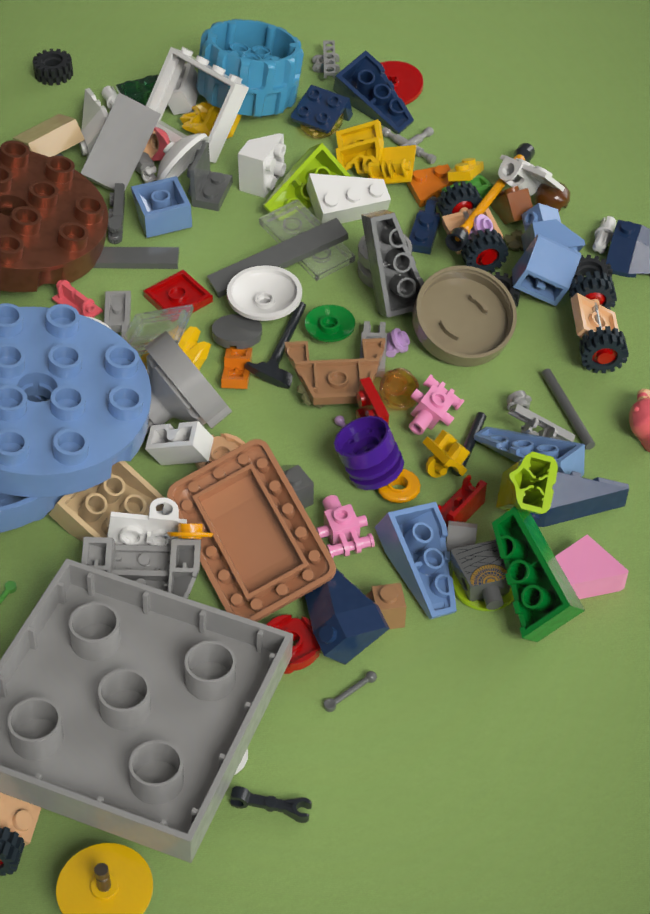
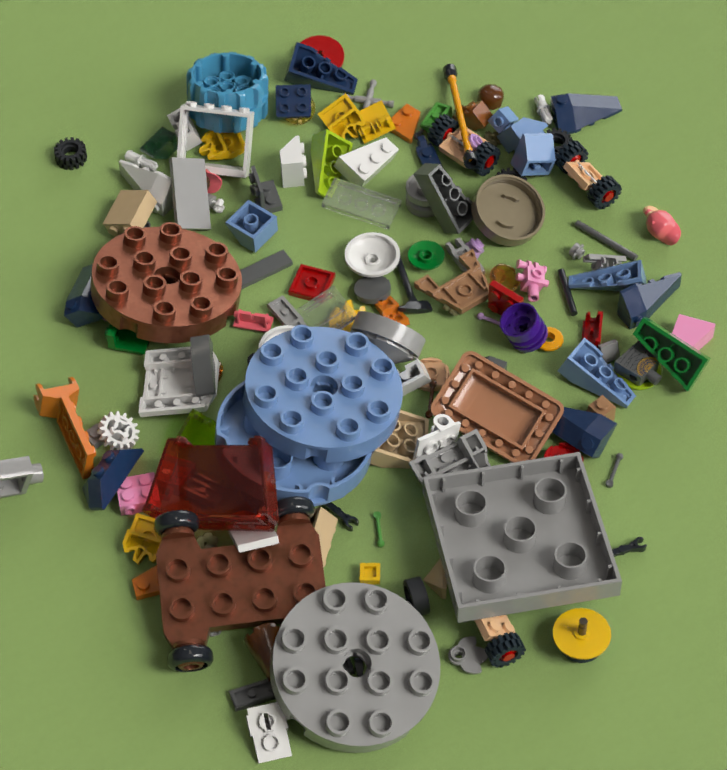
camera: 30 degrees left, 5 degrees up
(116, 215) = (217, 235): dark grey hinge -> none
(180, 155) = (239, 185): white dish -> none
(190, 531) = (468, 426): light orange piece -> none
(284, 253) = (357, 224): dark grey tile -> none
(326, 62) = (258, 55): light grey piece -> none
(343, 528) = (540, 378): bright pink piece -> none
(446, 454) = (557, 302): yellow hips -> none
(466, 170) = (425, 103): yellow plate -> none
(525, 175) = (470, 91): white piece -> none
(528, 484) = (639, 302): lime piece -> none

